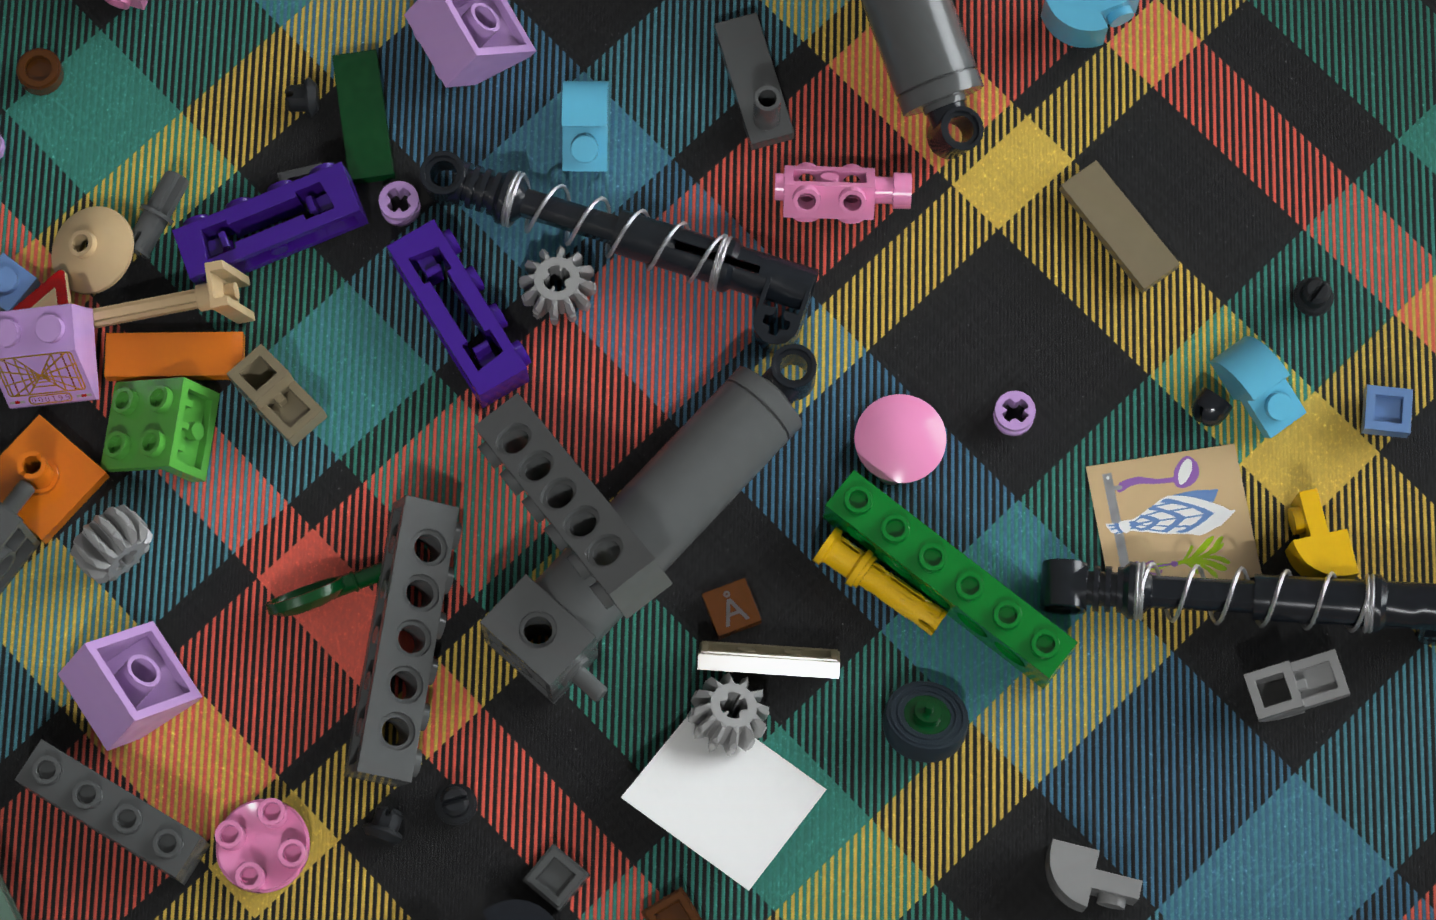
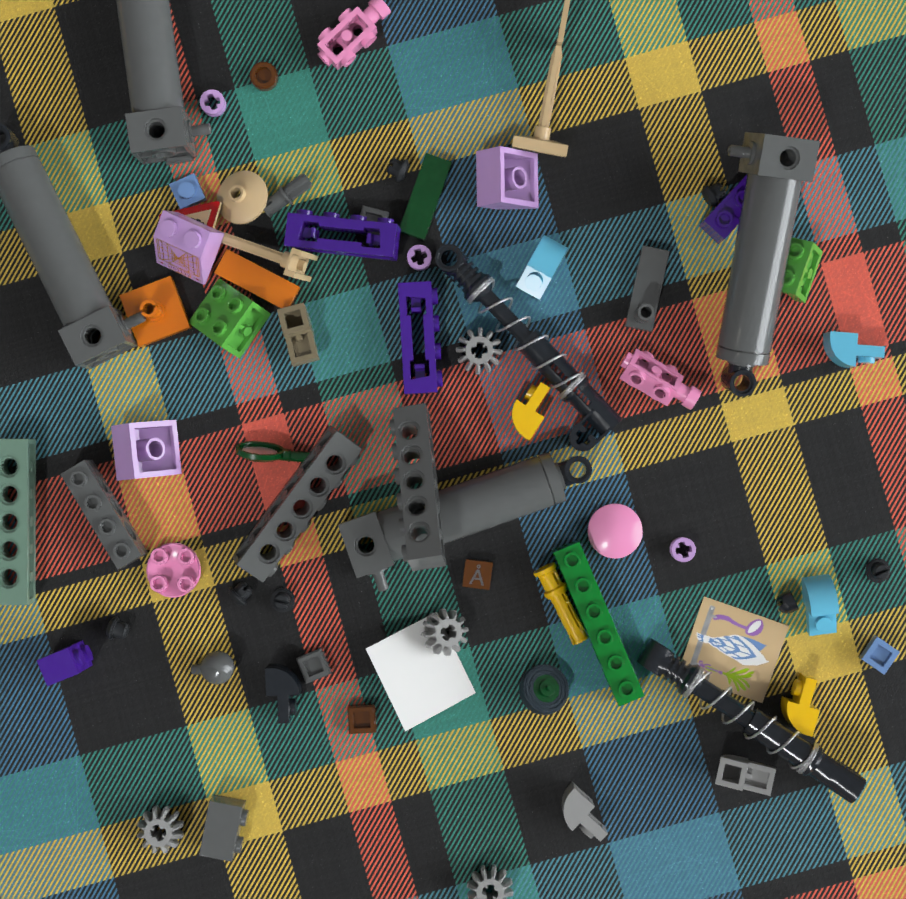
camera: 25 degrees right, 15 degrees up
(111, 544) = (171, 370): light grey gear -> none
(675, 341) = (525, 417): none -> yellow brick
(769, 659) = (481, 614): tile -> none
(1119, 226) = (797, 477): dark tan tile -> none

